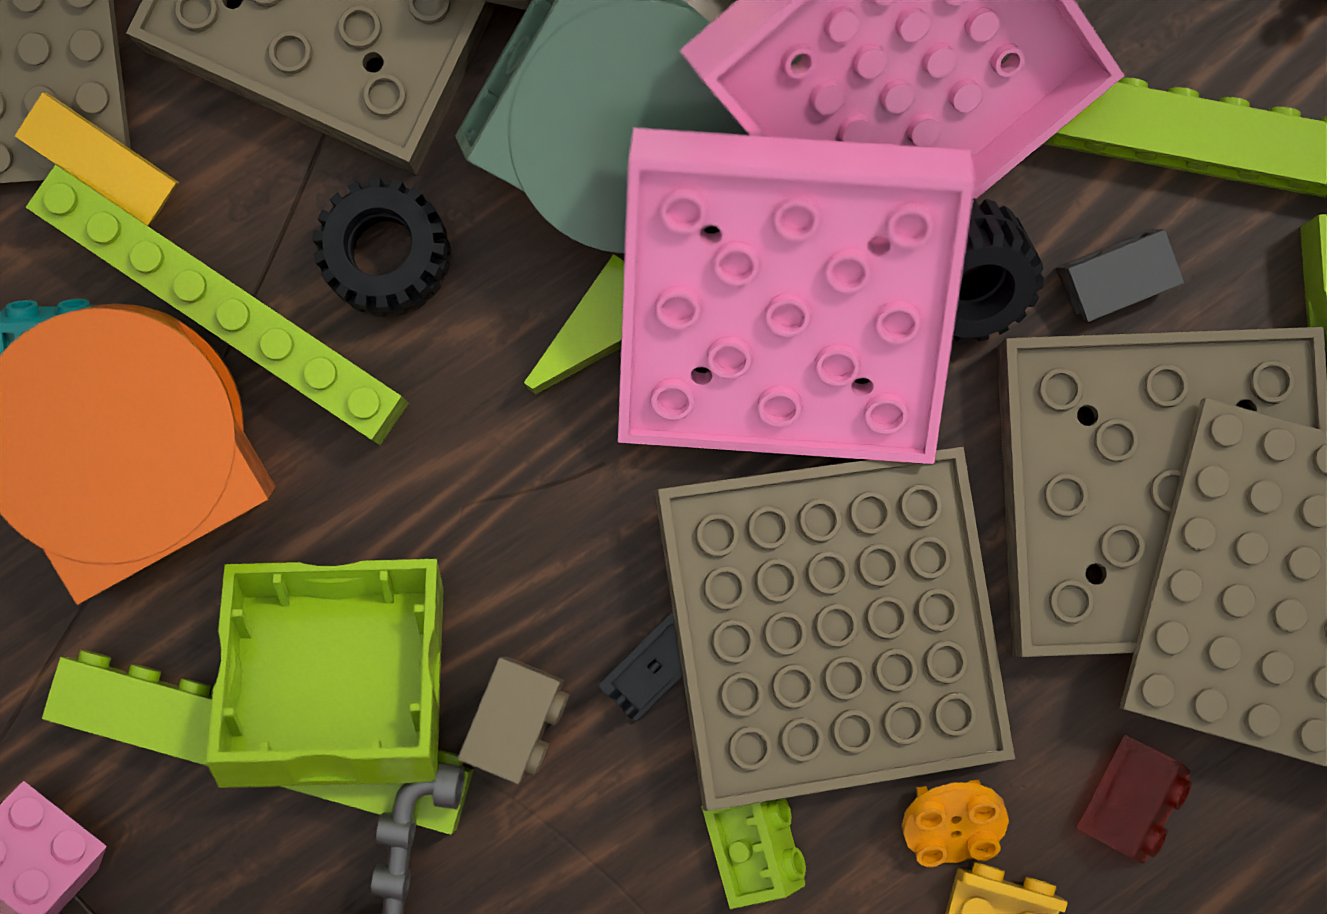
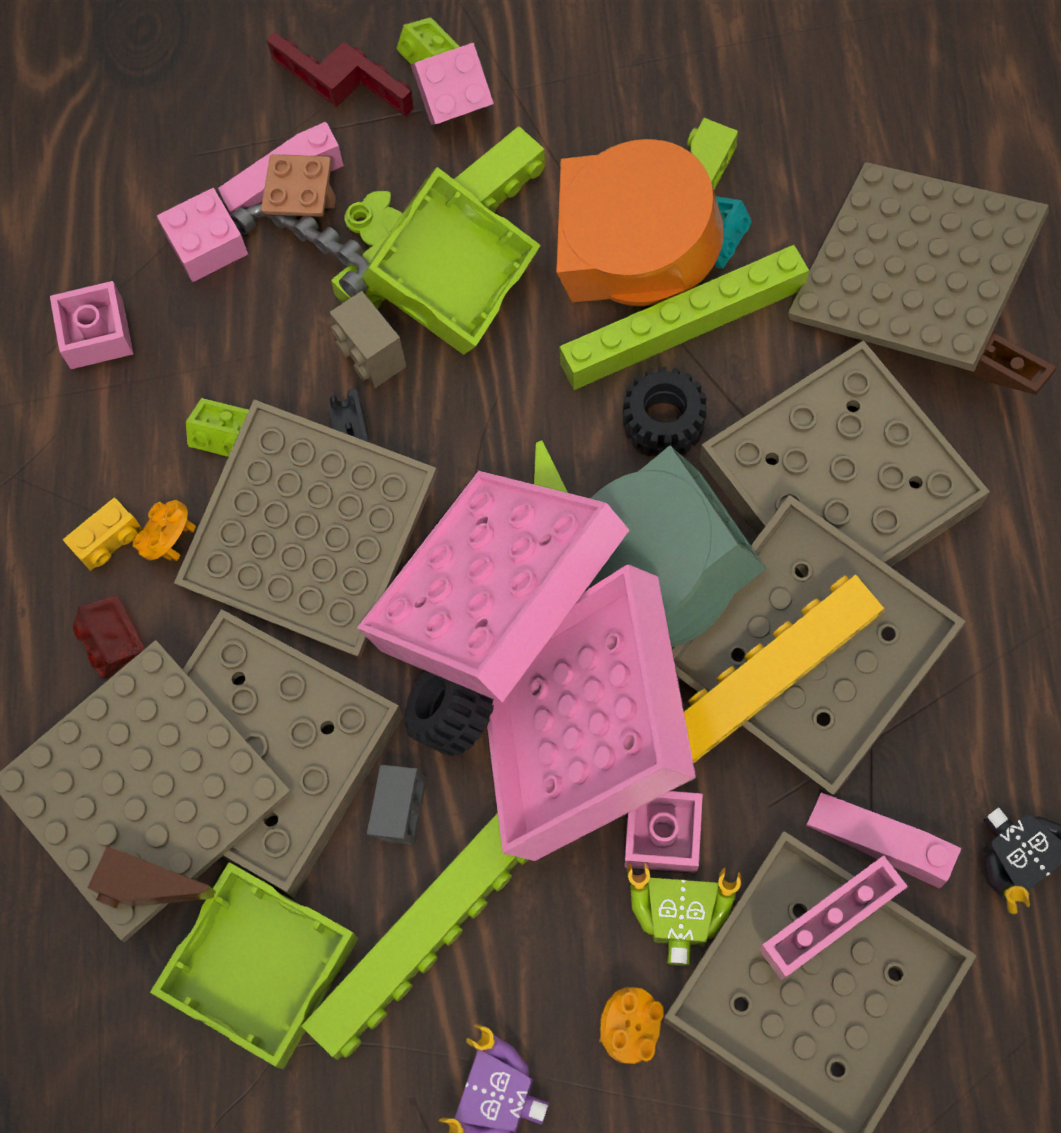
camera: 125 degrees right, 15 degrees down
(96, 158) = (802, 295): yellow tile -> none
(300, 839) = (377, 214): none -> lime plate

